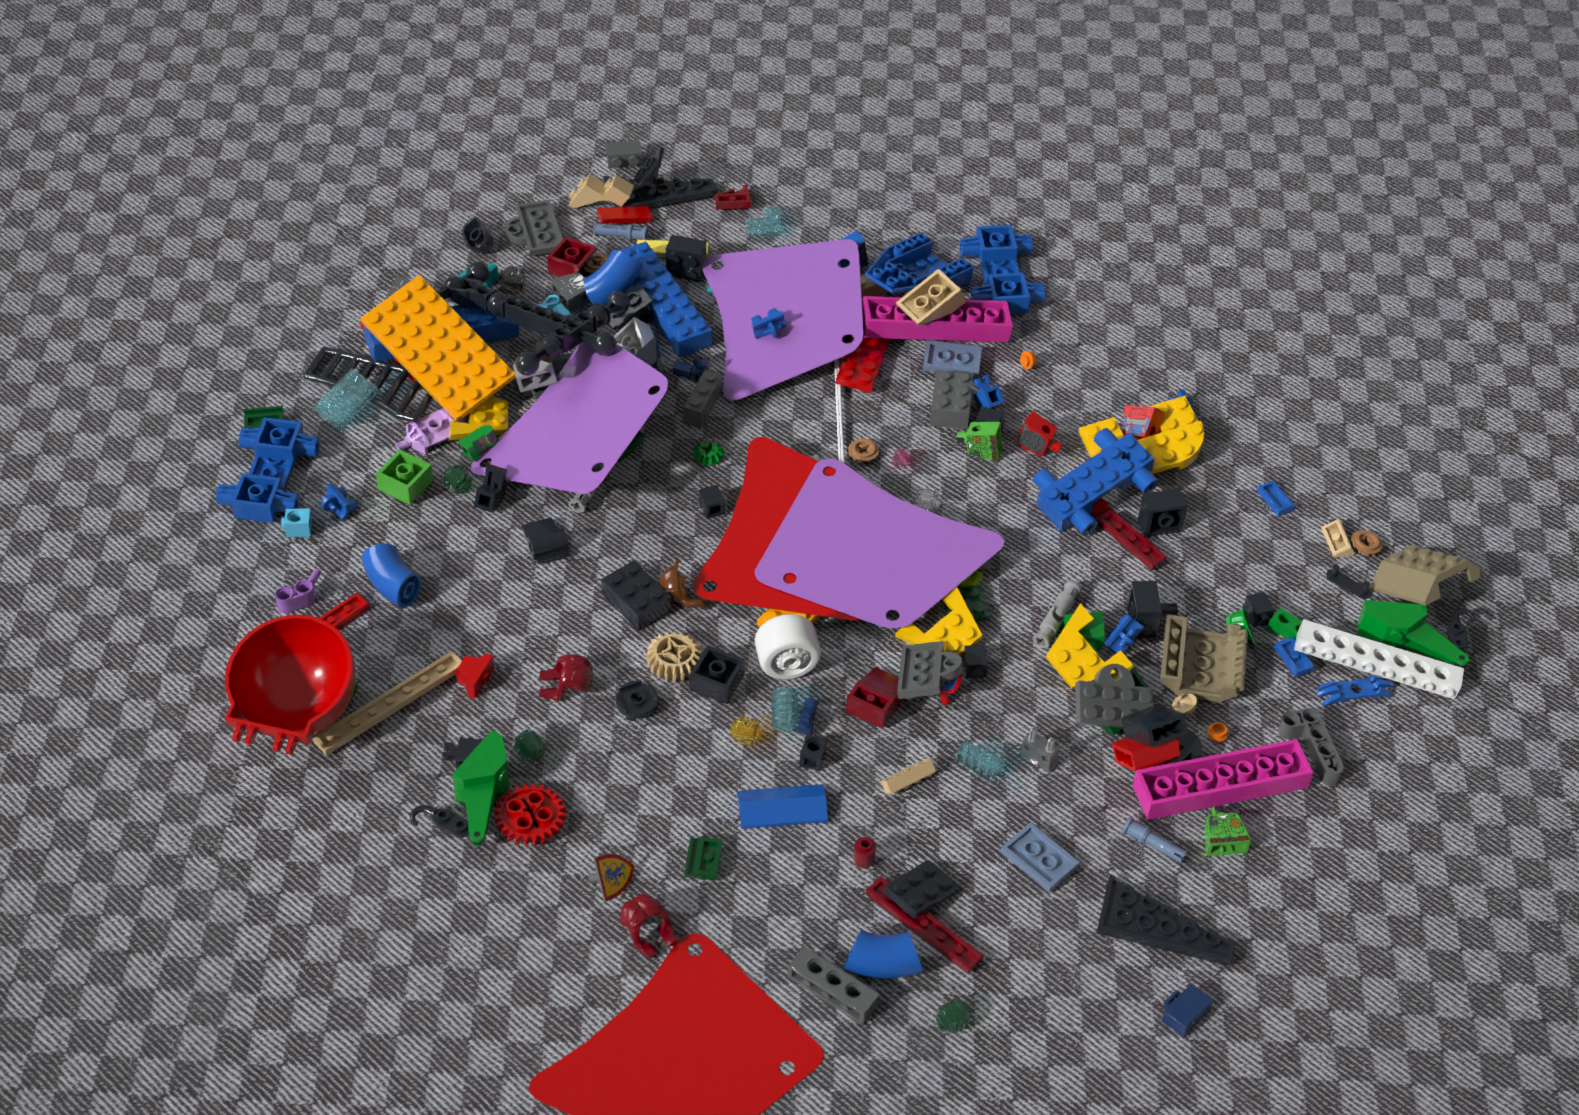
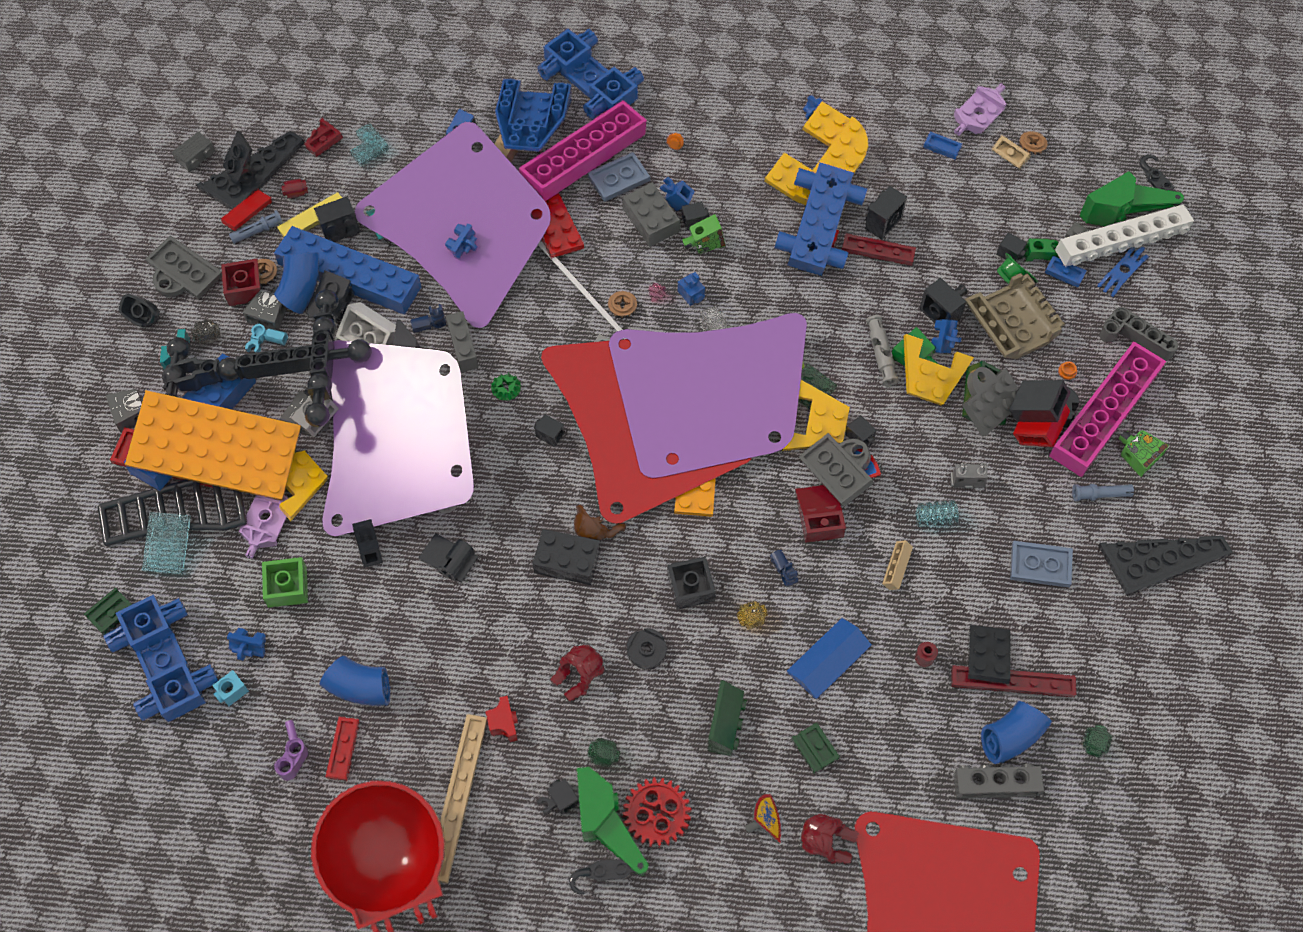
camera: 35 degrees left, 15 degrees up
(457, 480) = (329, 552): clear green head -> none
(478, 441) = (315, 506): green leg -> none
(594, 190) = (203, 204): tan arch -> none
(647, 784) = (726, 719): none -> dark green slope
(673, 655) = (648, 575): tan gear -> none
(677, 220) = (294, 188): none -> dark red brick
(784, 709) = (762, 575): clear light blue piece -> none
(787, 646) = (727, 522): white wheel -> none
(813, 752) = (815, 604): black brick -> none
(932, 299) = (575, 137): tan slope -> none
(932, 471) = (691, 289): none -> blue brick
(1038, 435) = (742, 205): red torso -> none
(1142, 421) = (808, 145): red torso -> none
(1185, 703) = (1029, 363): tan hat -> none
(1186, 1009) = (1235, 612): dark blue piece -> none
(1348, 584) = (1047, 184): black piece -> none
(1351, 486) = (985, 101): none -> lavender plate
(1416, 574) = (1100, 148): dark tan slope -> none

